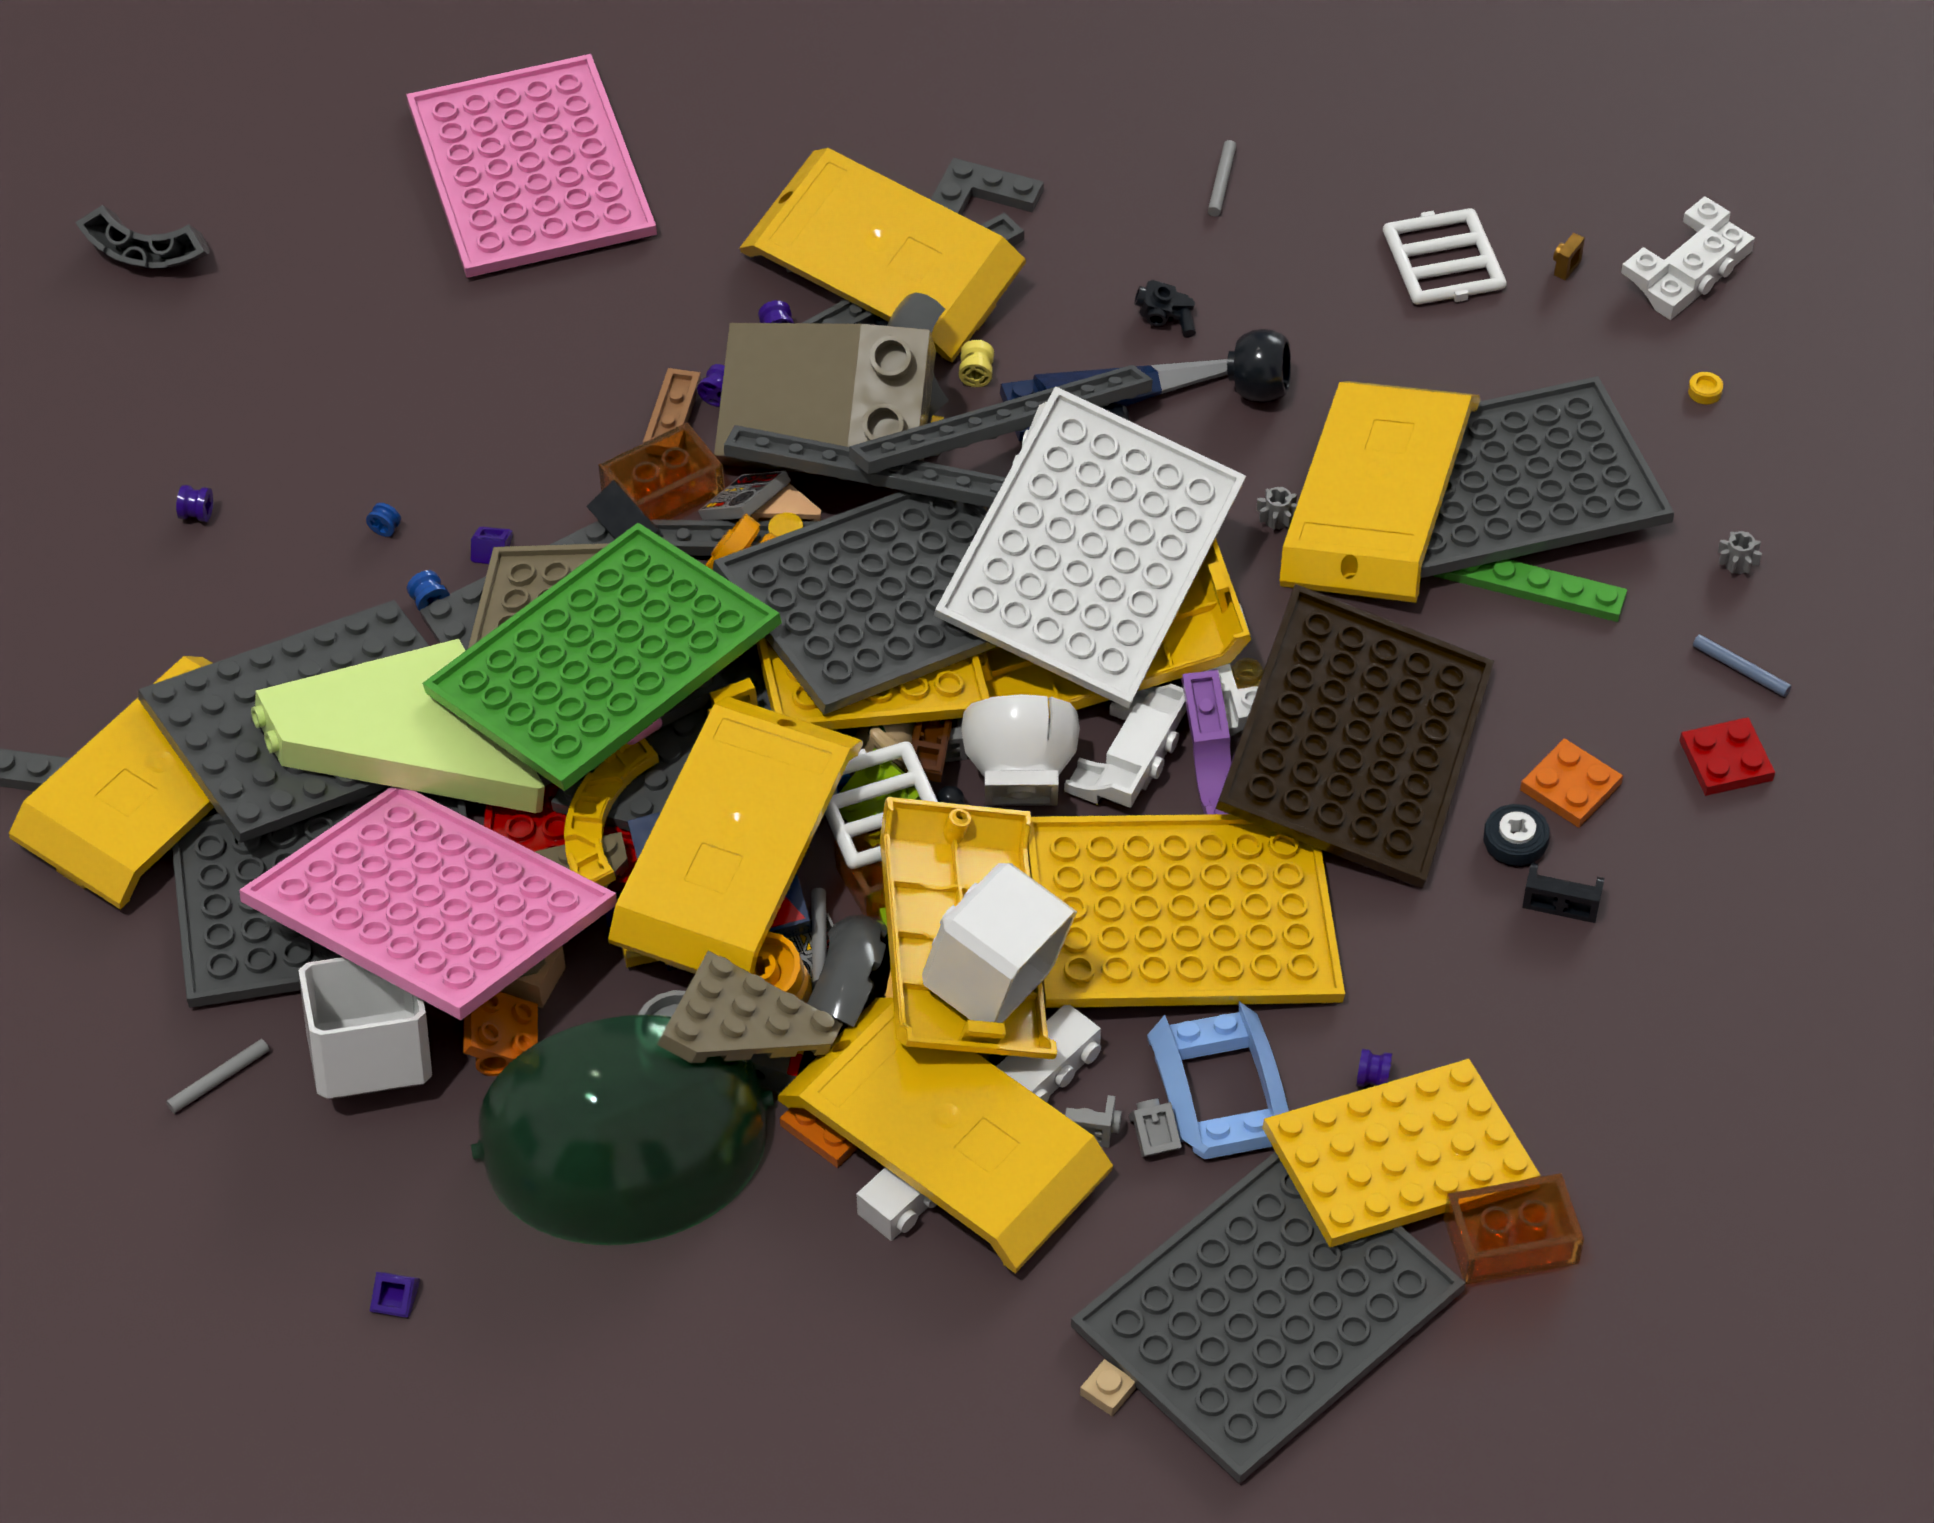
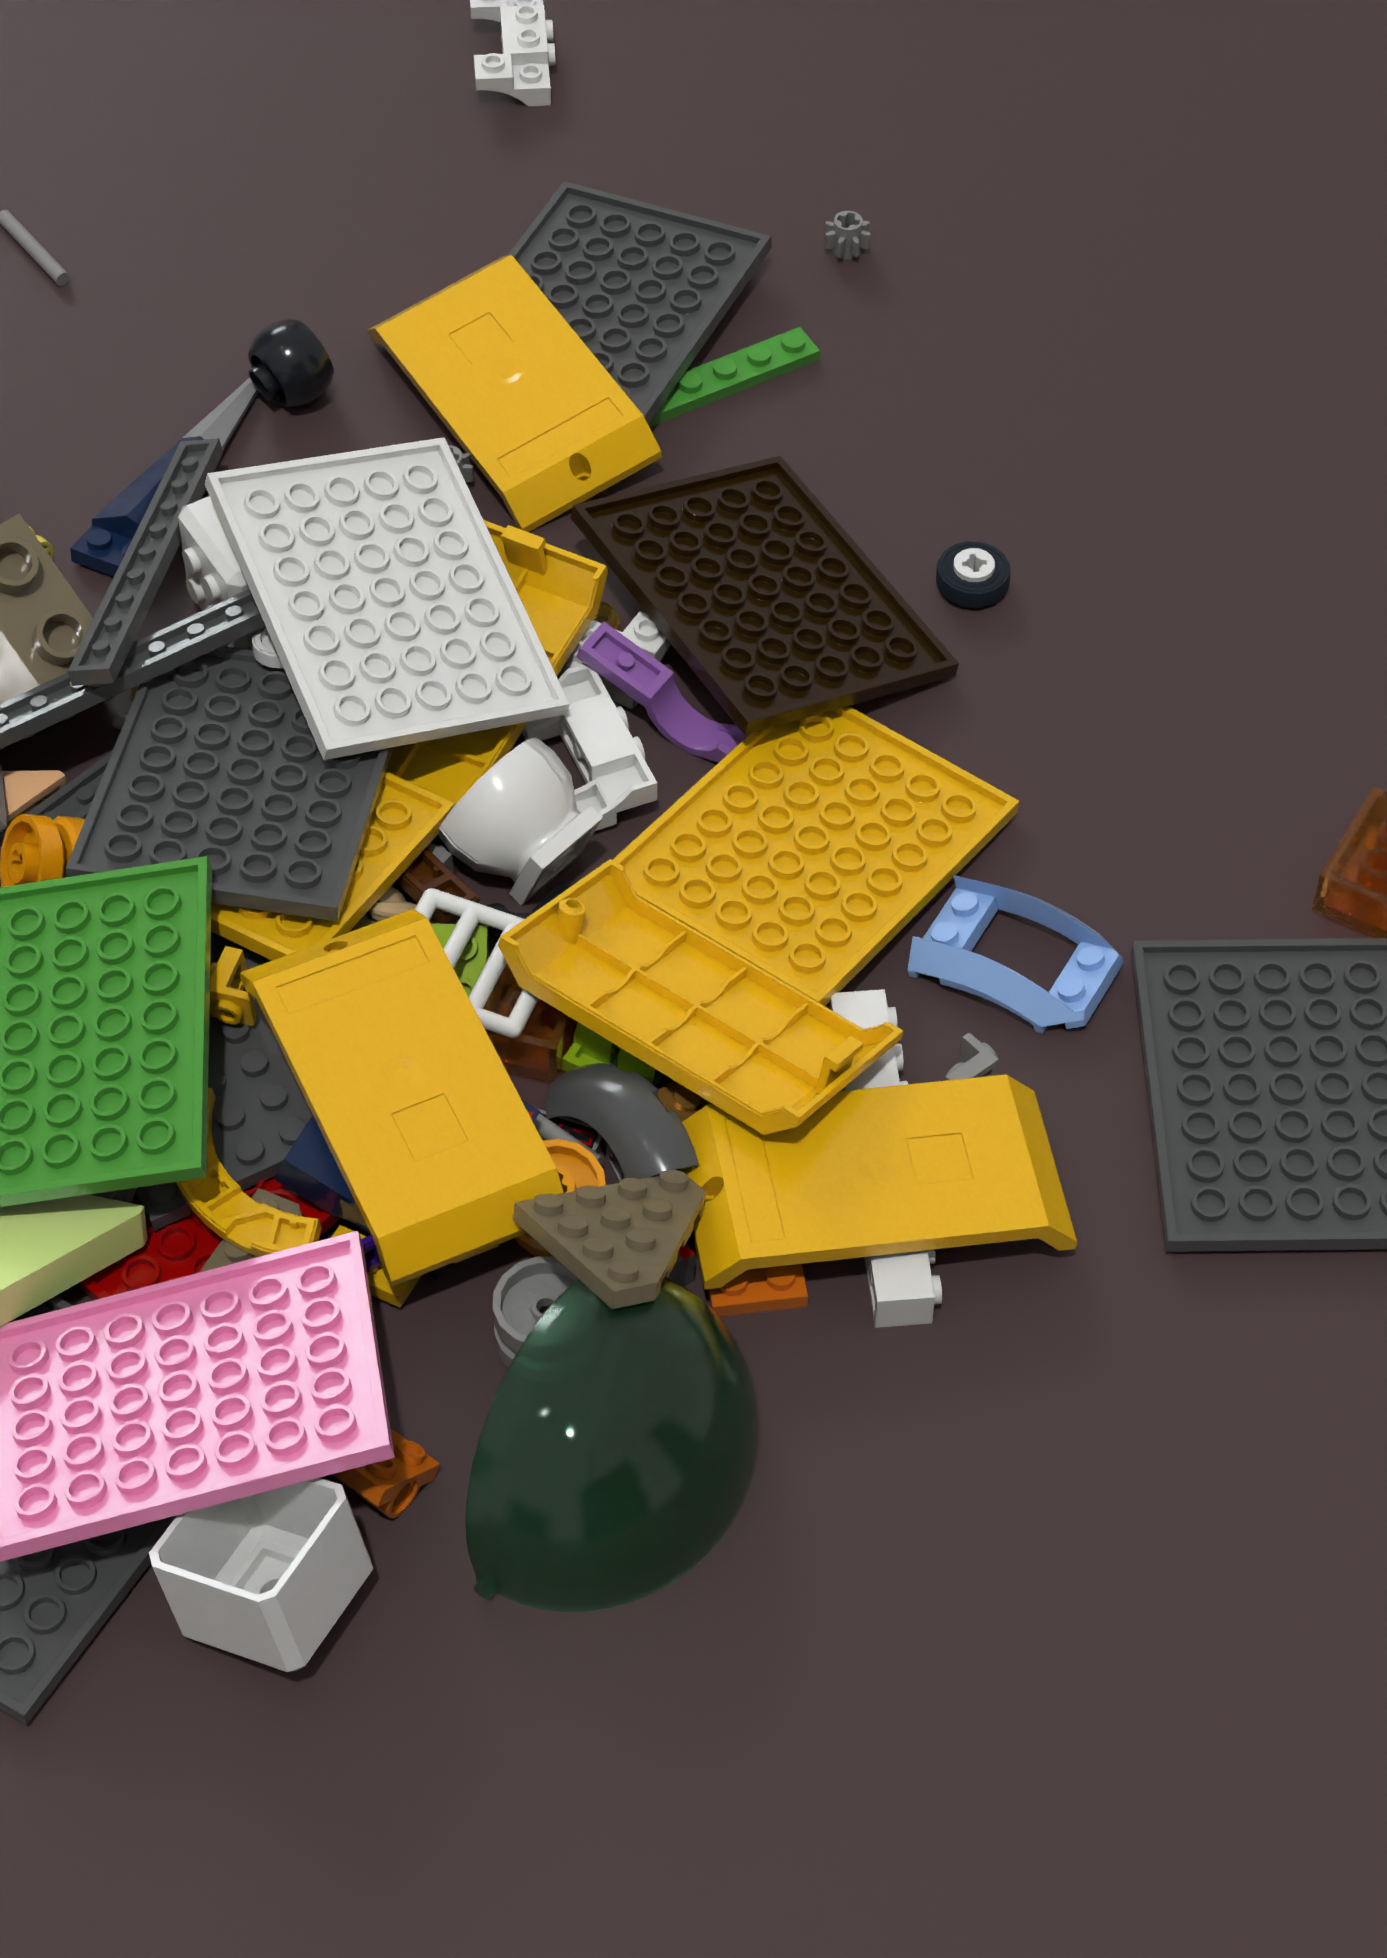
camera: 50 degrees left, 0 degrees up
(217, 1076) = (142, 1759): light grey bar -> none
(394, 1294) = (581, 1783): dark purple slope -> none
(784, 523) = (50, 804): yellow tile -> none
(997, 944) = (773, 972): white plate -> none
(1108, 1387) = (1259, 1271): tan plate -> none
(1155, 1127) = (1020, 1032): light grey bracket -> none
(1161, 301) = (126, 381): black piece -> none
(1373, 1068) = (1118, 839): dark purple wheel -> none
(1396, 1150) = (1223, 885): yellow plate -> none
(1412, 274) = (303, 212): white bar -> none
(1562, 896) = (1067, 592): black hinge -> none
(1568, 256) = (414, 107): pearl gold plate -> none
(1571, 782) = (954, 504): orange plate -> none
(1705, 388) = (649, 135): yellow tile -> none
(1727, 756) = (1036, 394): red plate -> none
(1741, 665) = (955, 319): sand blue bar -> none

